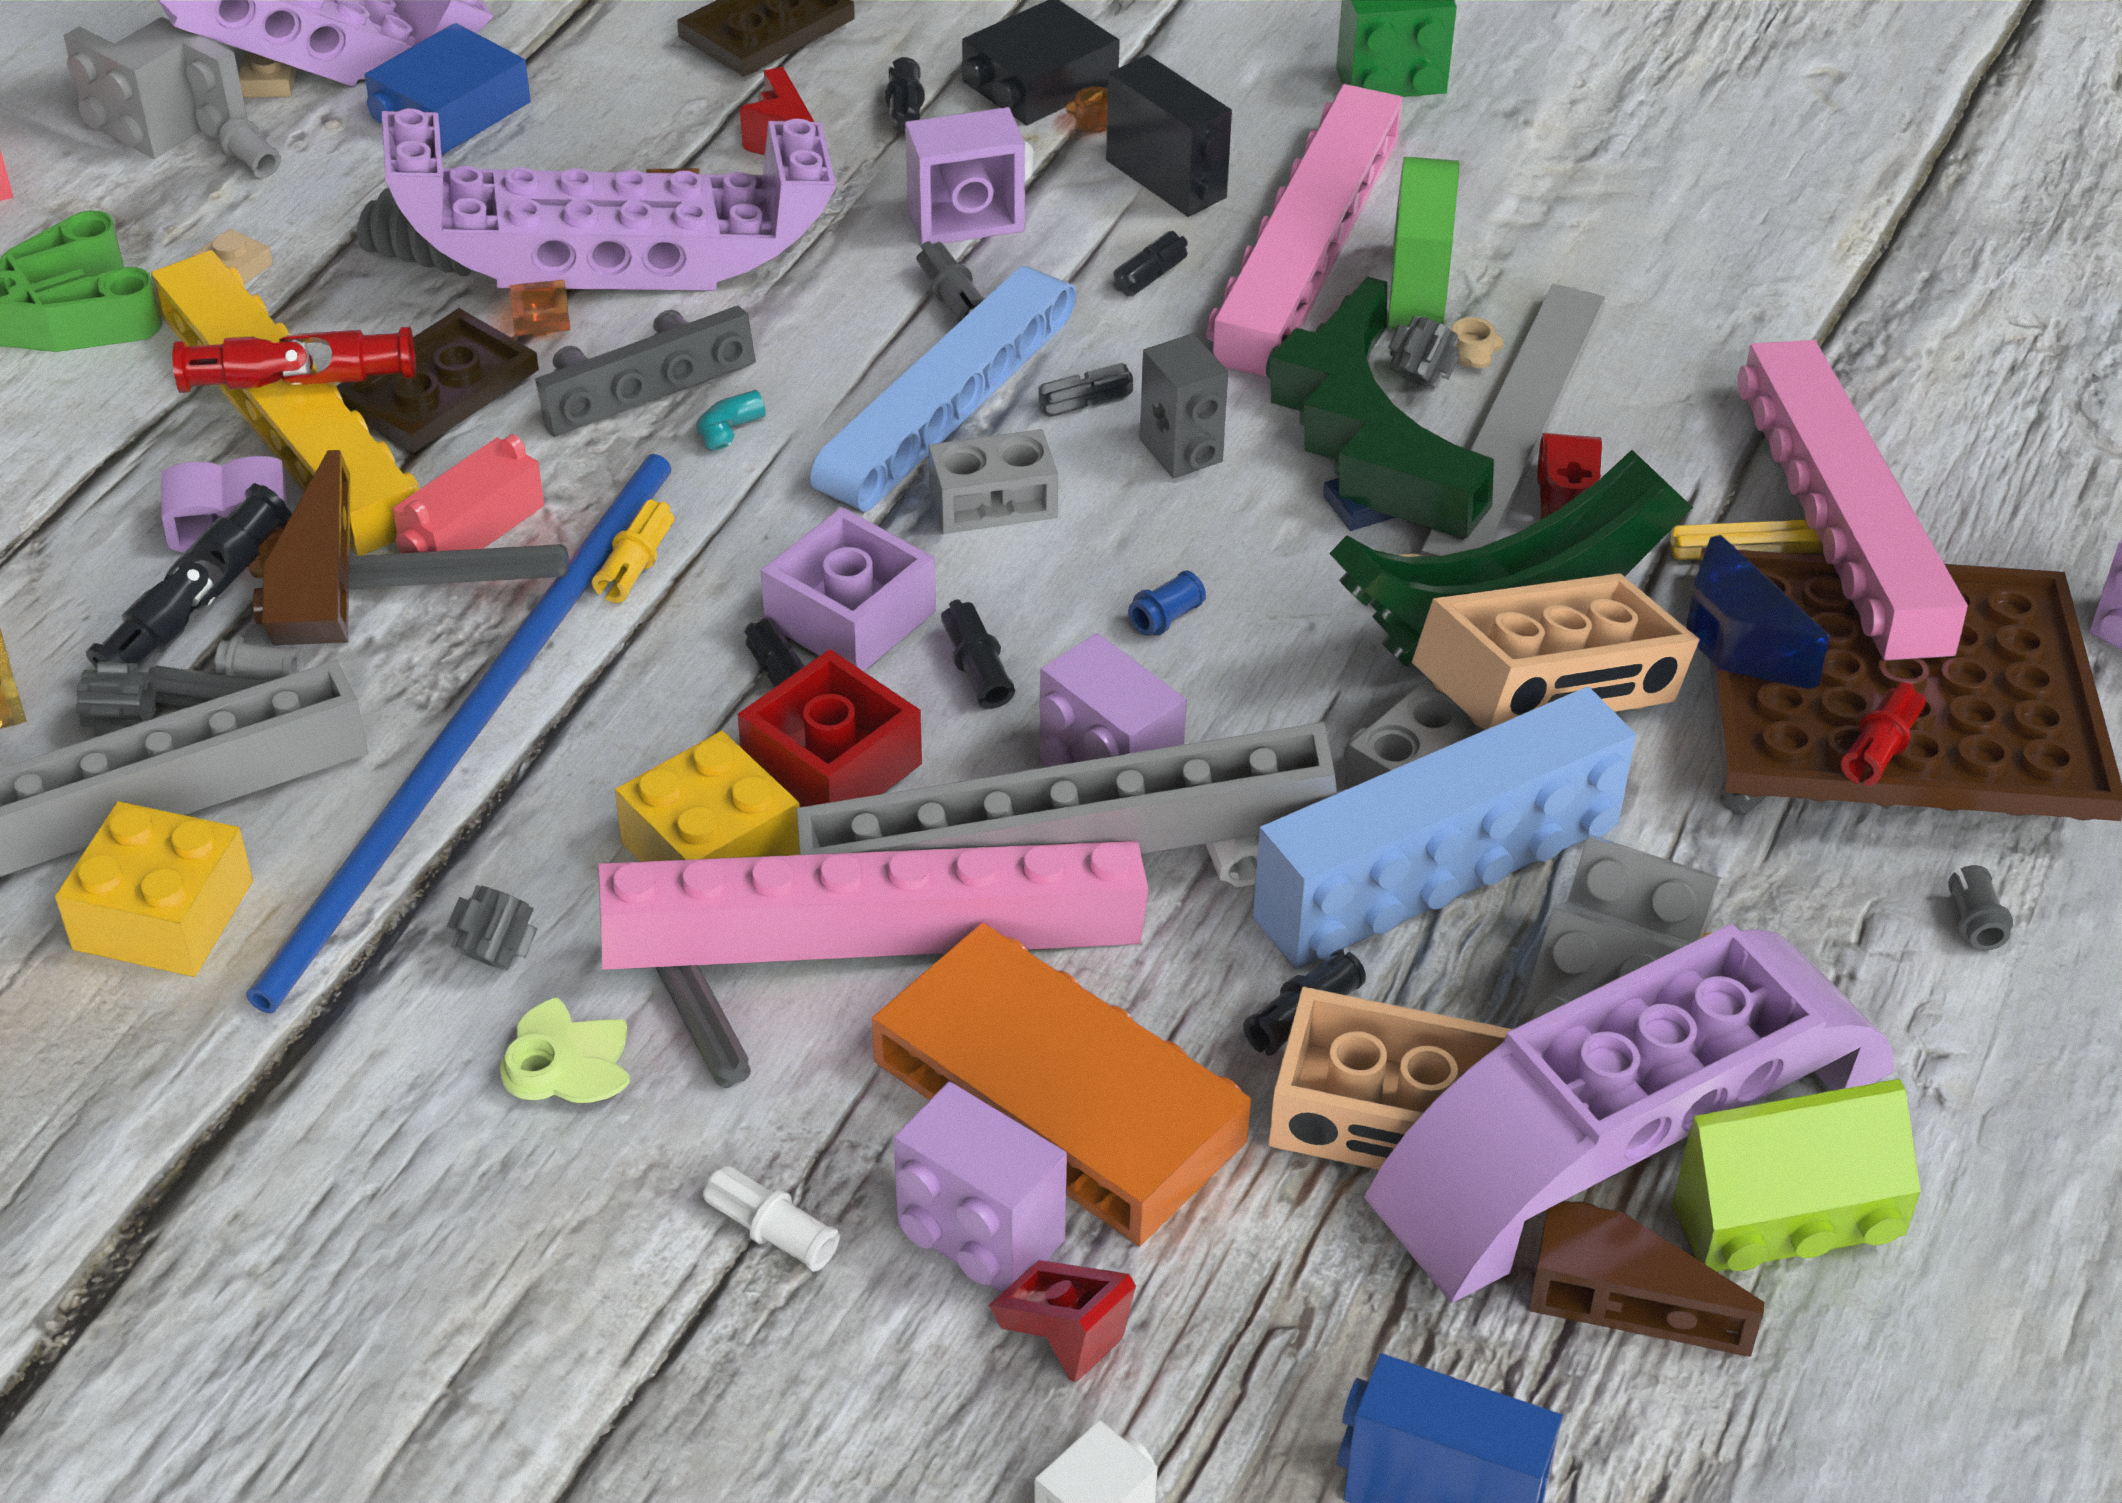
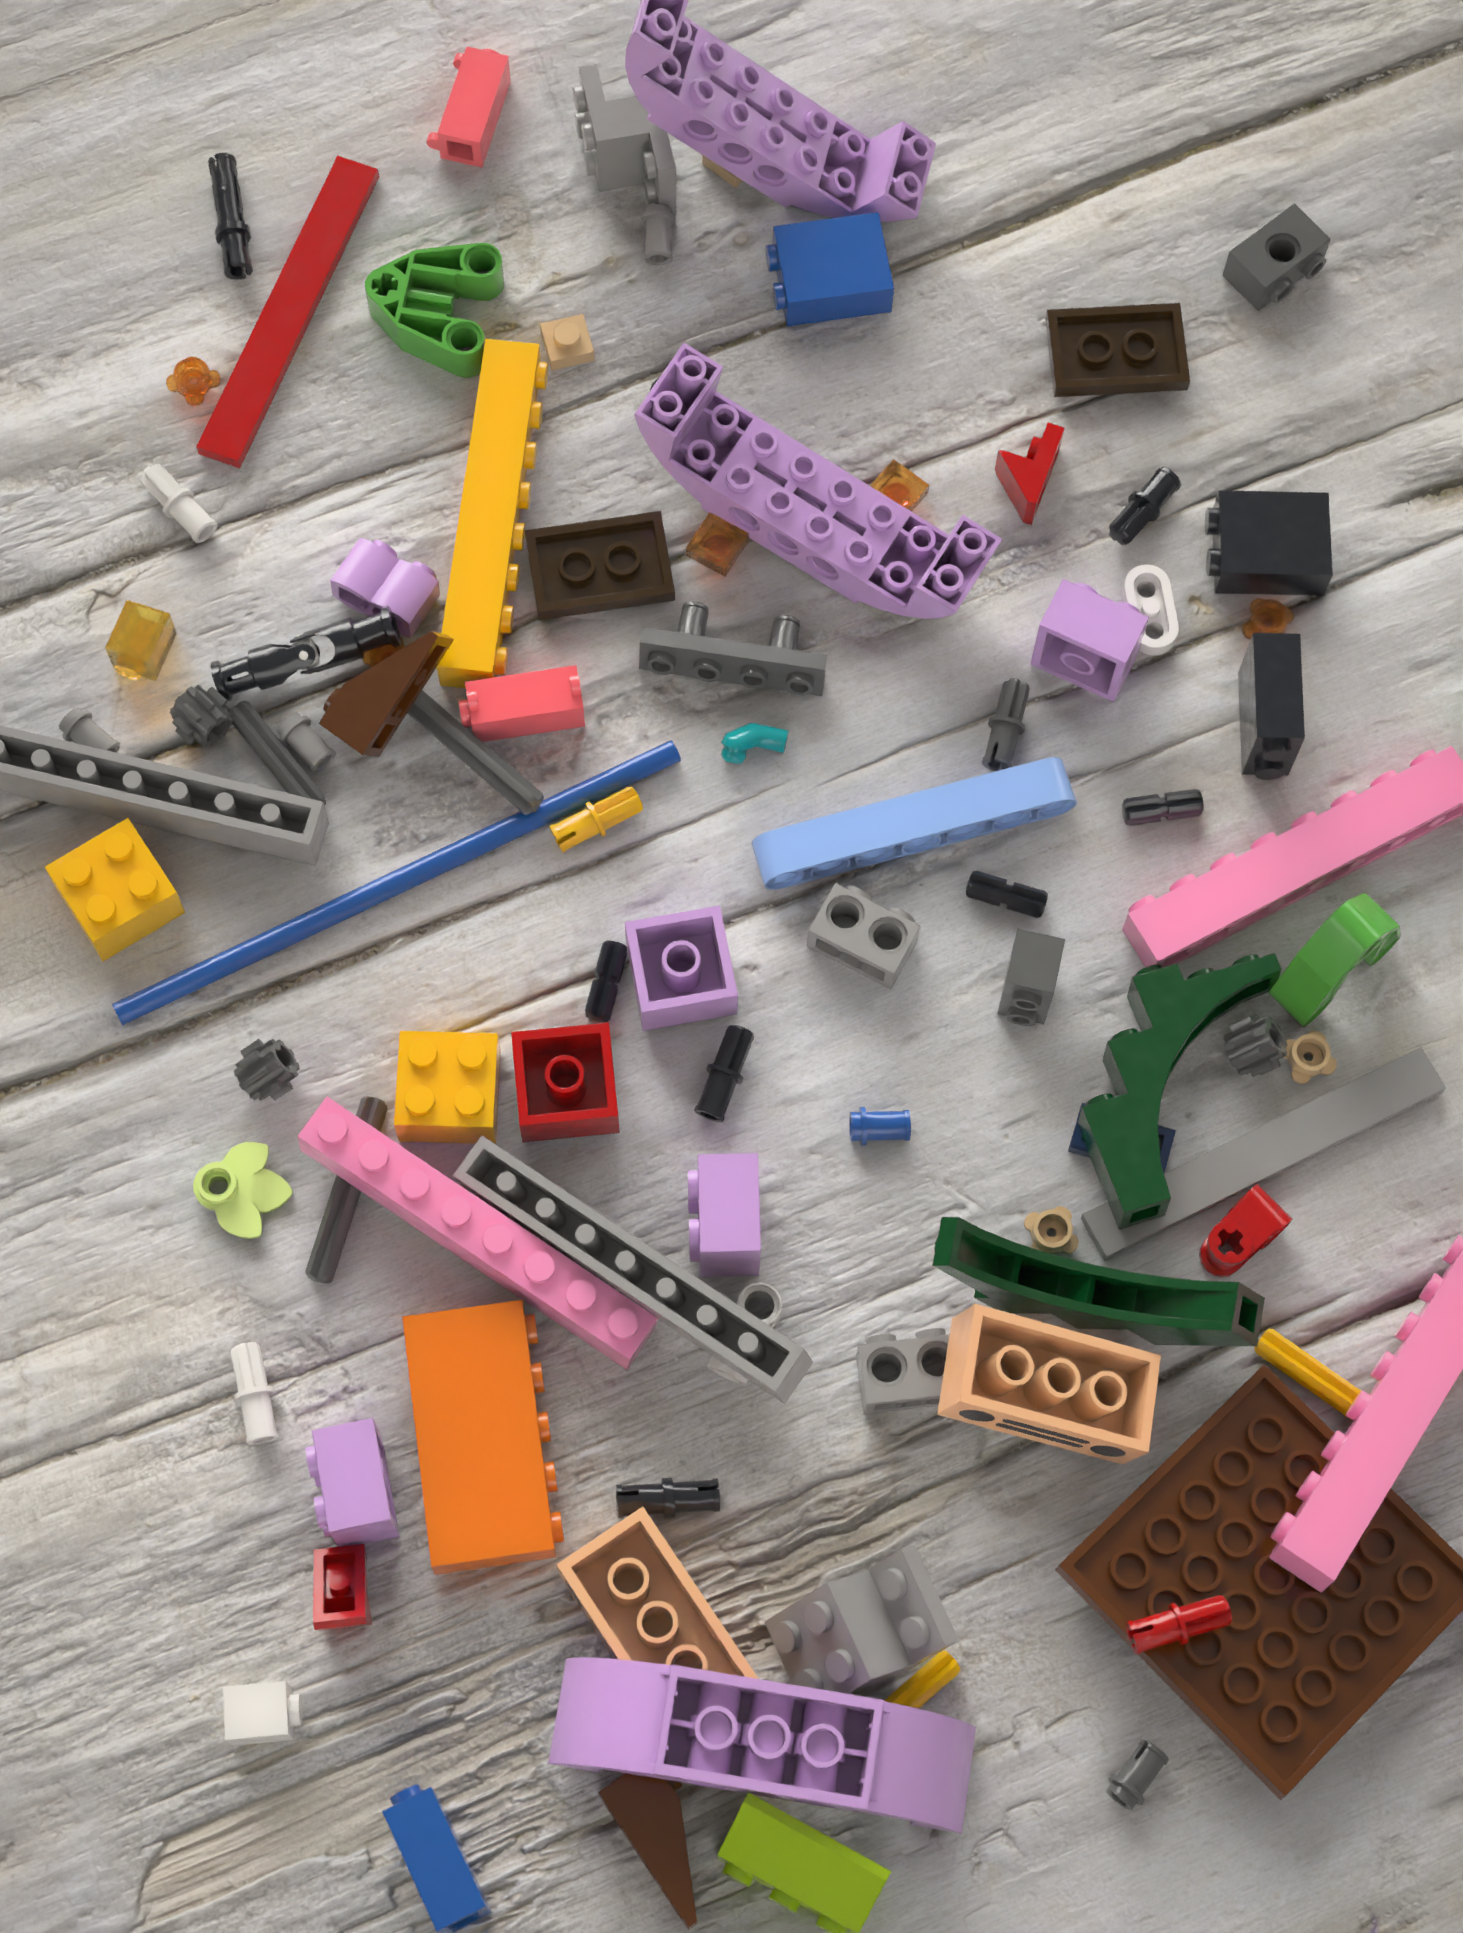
camera: 40 degrees right, 25 degrees up
(259, 362) = (479, 495): red piece -> none
(1441, 826) = (854, 1455): light blue brick -> none
(1751, 623) = (1197, 1459): clear blue slope -> none

